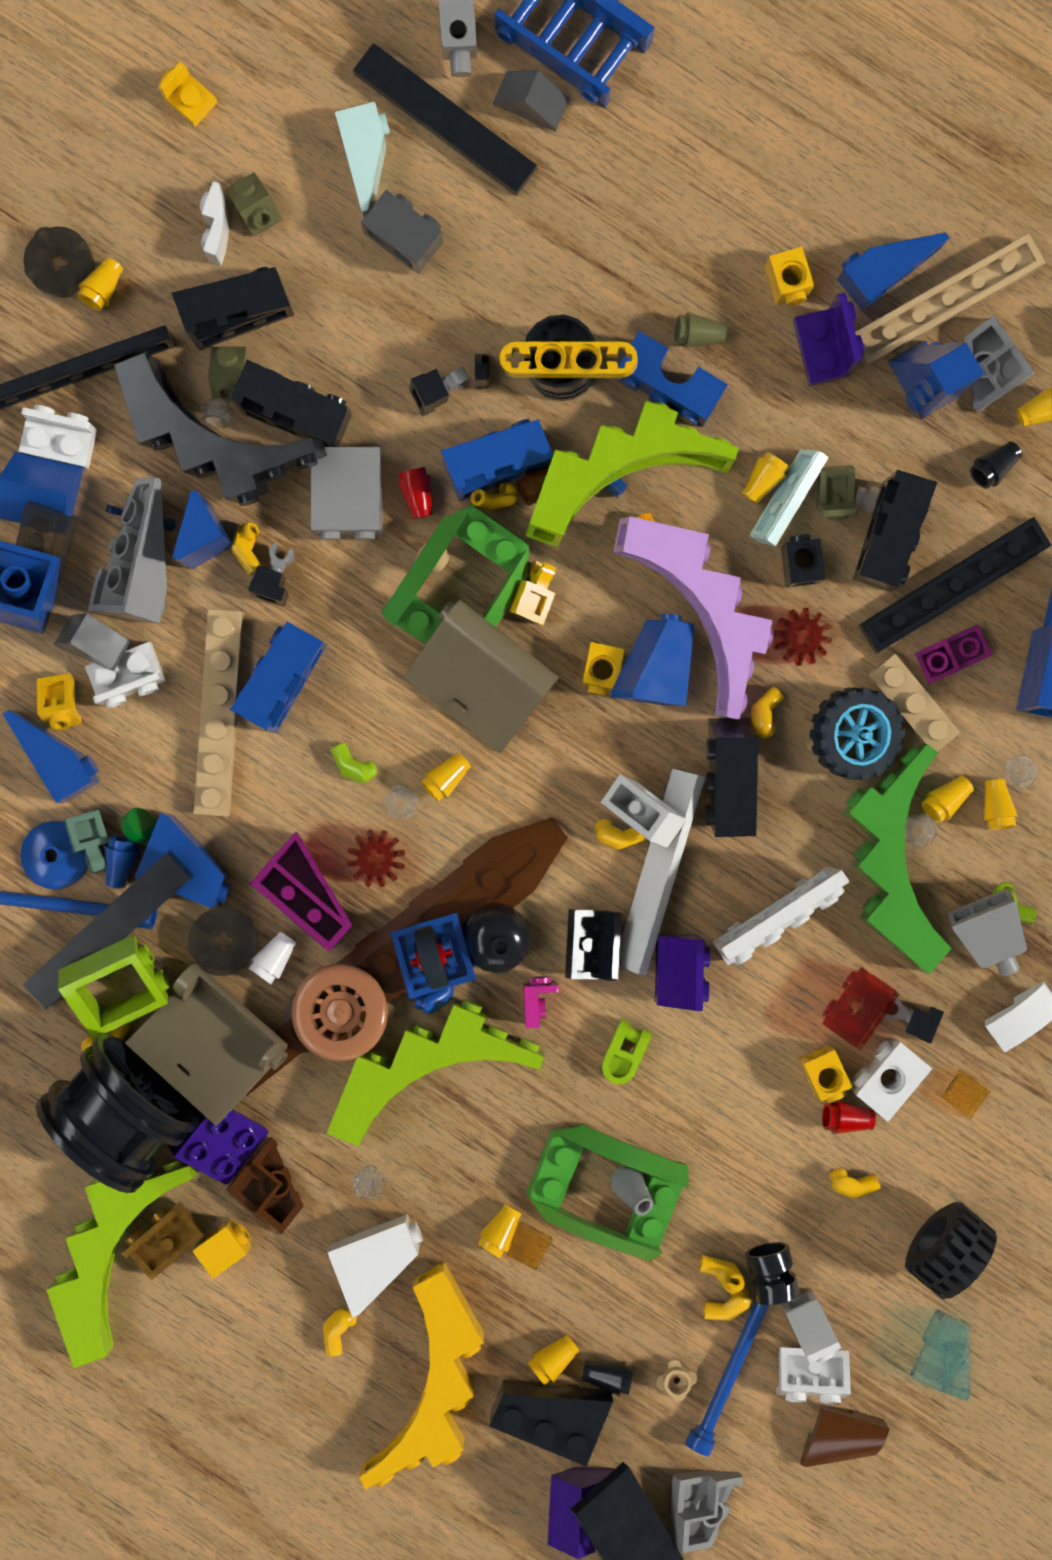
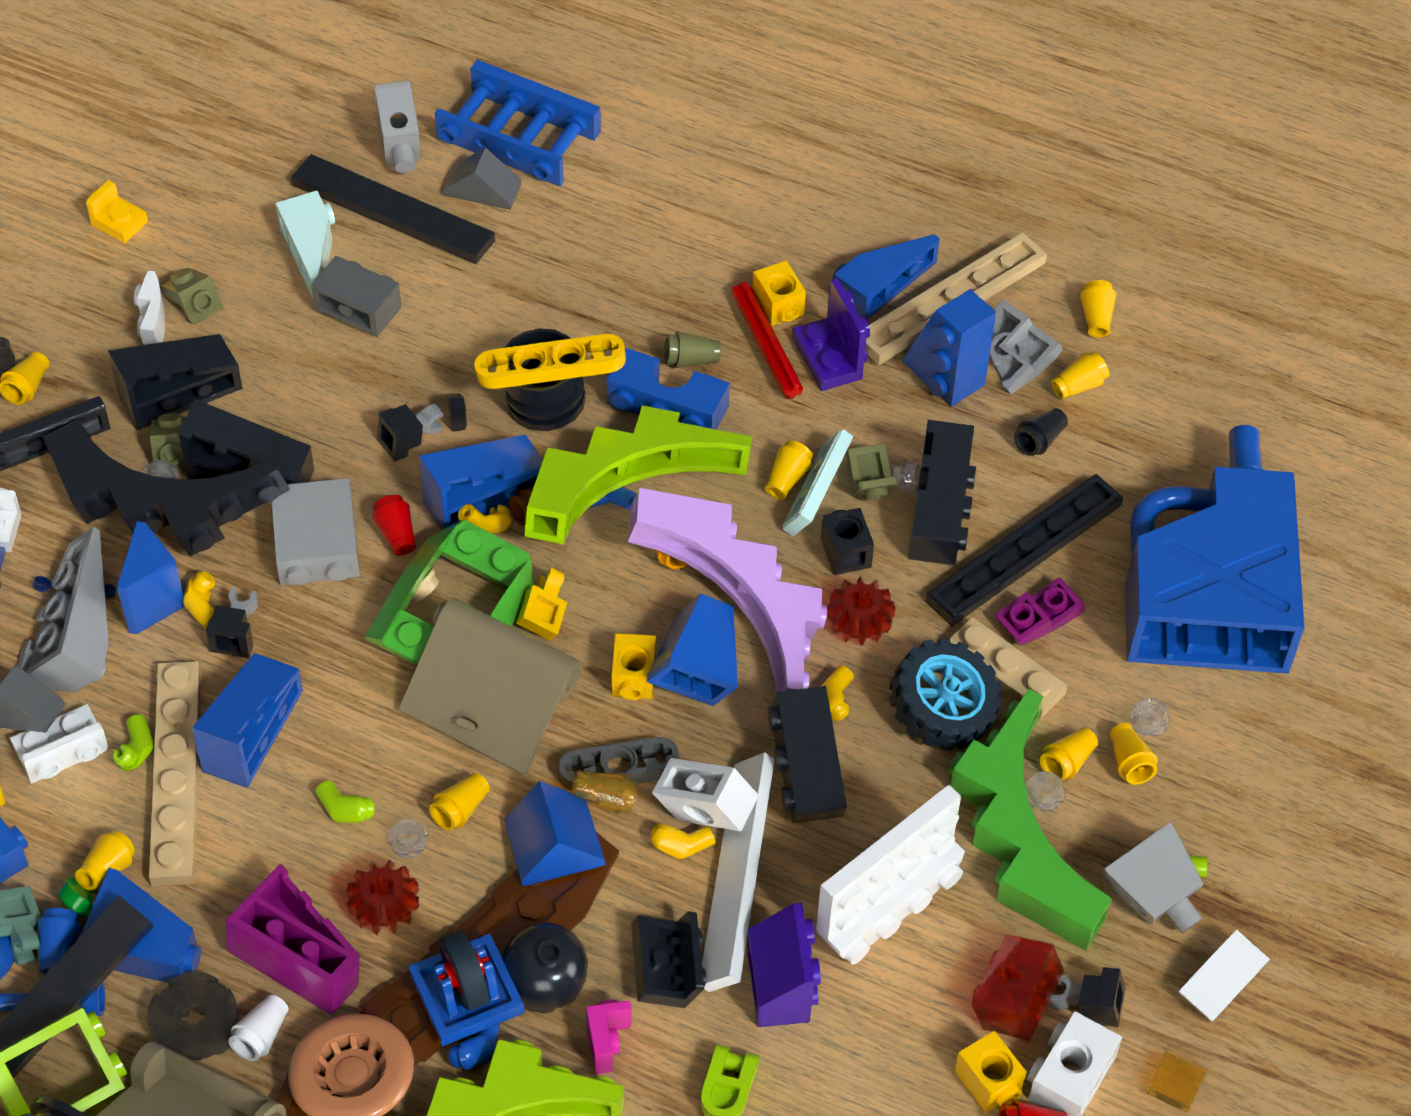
camera: 15 degrees left, 35 degrees down
(158, 797) = (109, 851): none -> yellow cone
(189, 687) = (138, 748): none -> lime arm
(517, 822) = (552, 835): none -> blue slope
(564, 786) = (606, 790): none -> clear yellow cone
(604, 764) = (629, 750): none -> dark grey beam
(769, 325) = (766, 340): none -> red axle

